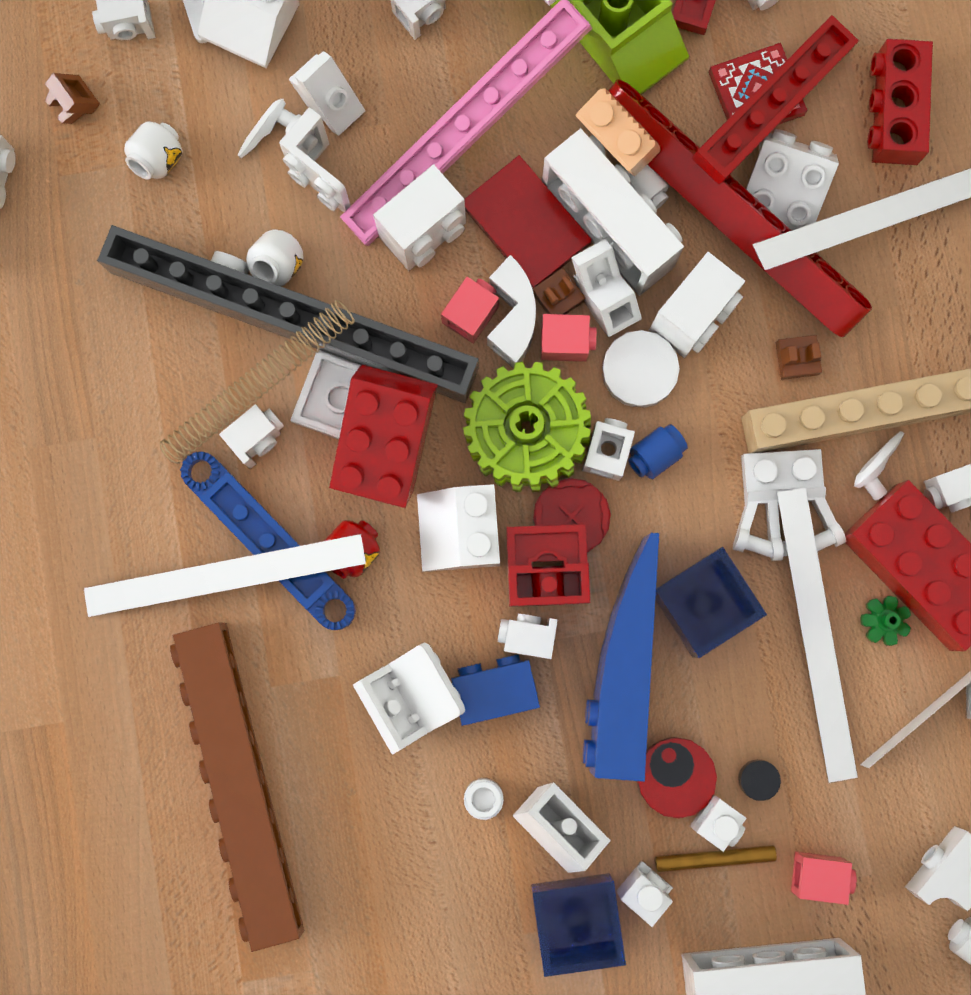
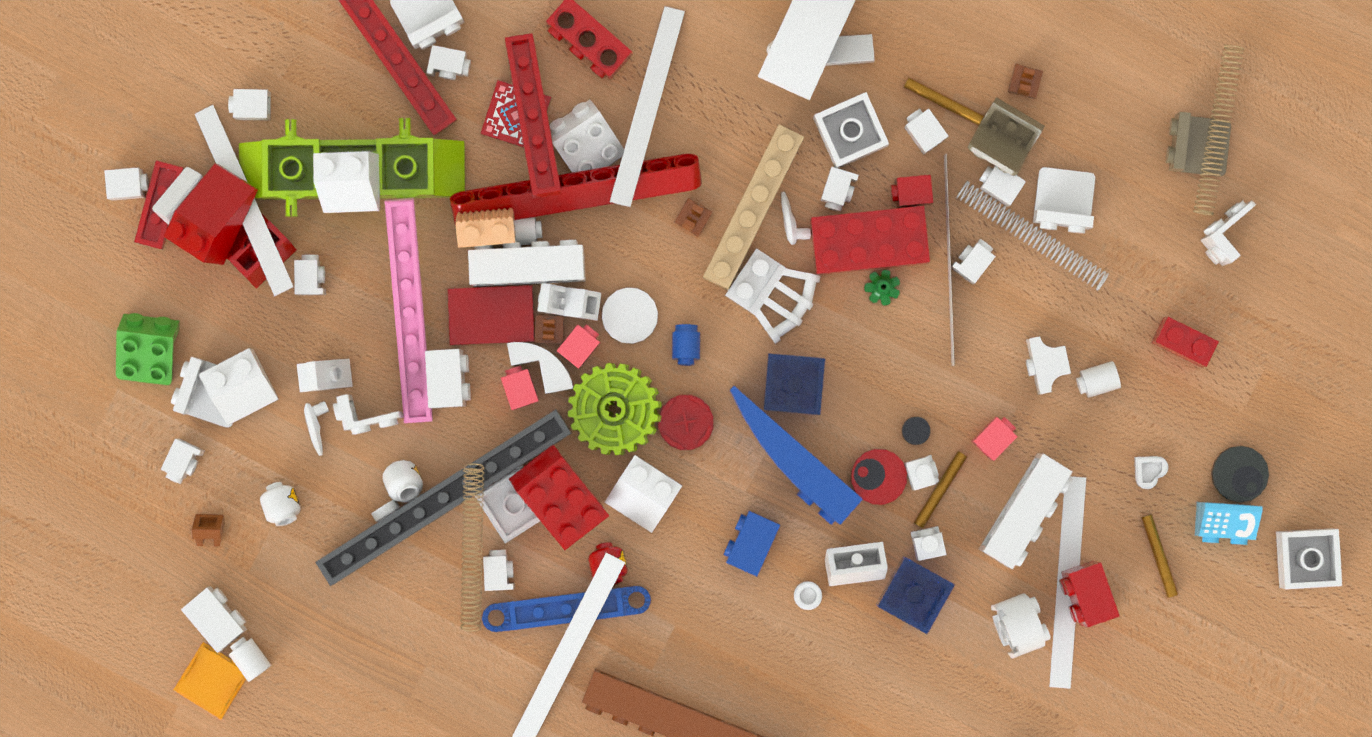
camera: 55 degrees left, 5 degrees up
(409, 697) = (718, 594): white bracket -> none
(528, 636) = (735, 500): white brick -> none
(548, 584) = (714, 466): red brick -> none
(620, 437) = (667, 382): white brick -> none
(699, 301) = (619, 258): white brick -> none
(817, 634) = (859, 334): white sticker -> none

